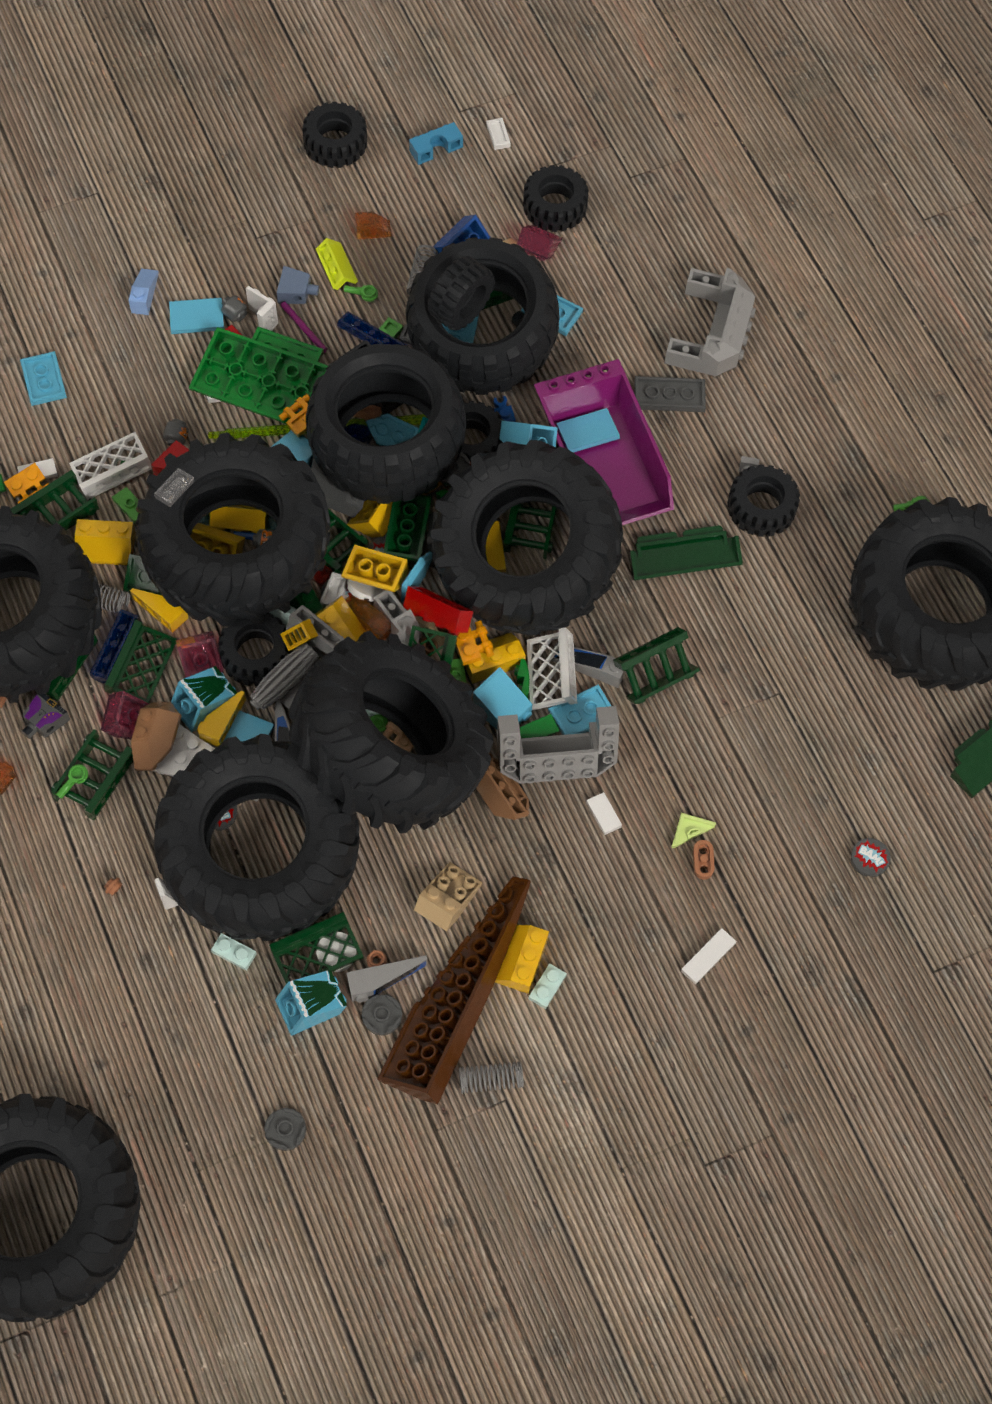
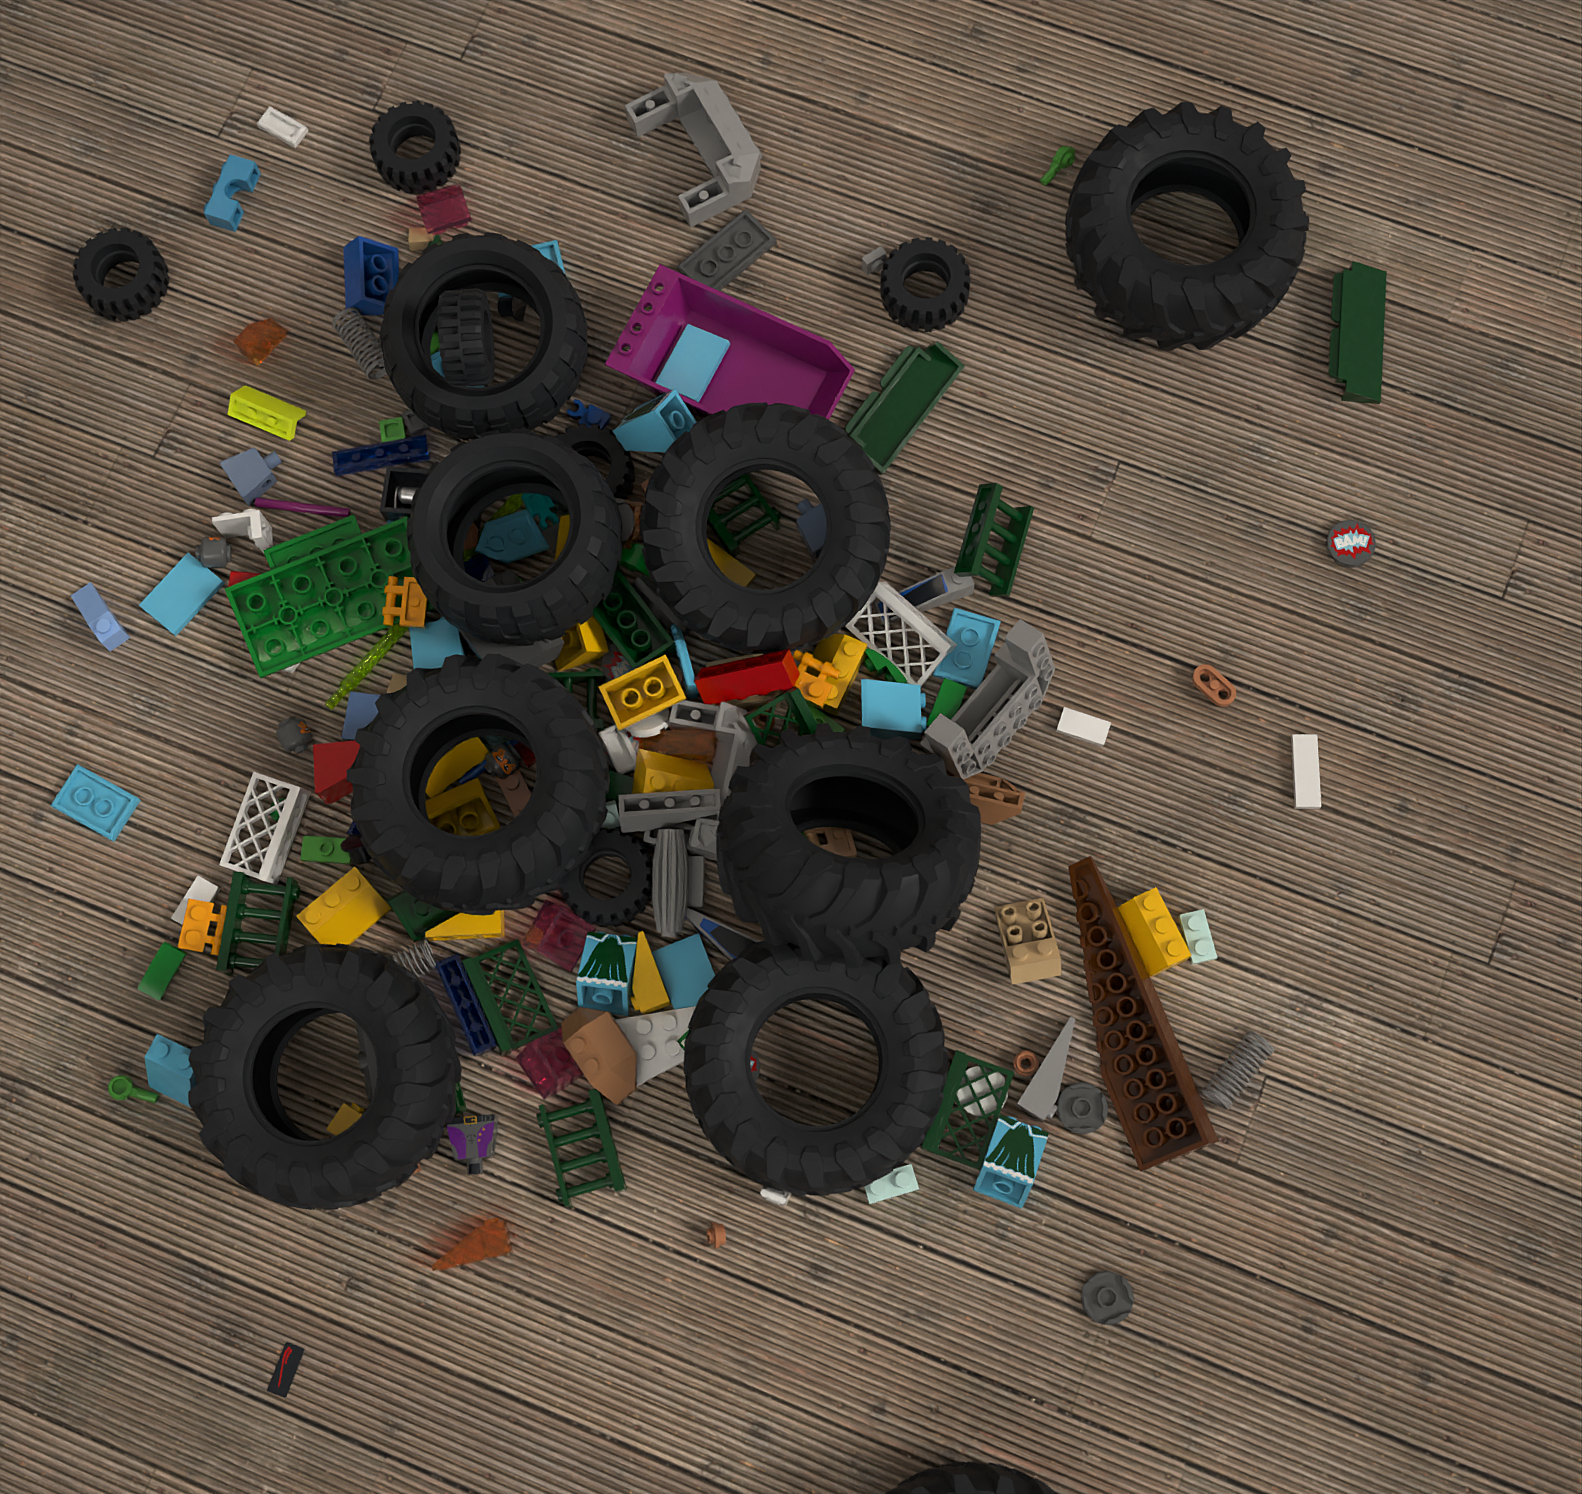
camera: 35 degrees left, 10 degrees up
(77, 775) = (572, 1165): bright green plate -> none
(174, 487) = (395, 802): clear plate -> none
(308, 630) = (652, 814): yellow slope -> none
(368, 292) = (330, 413): bright green plate -> none
(689, 828) = (1170, 667): yellowish green tile -> none

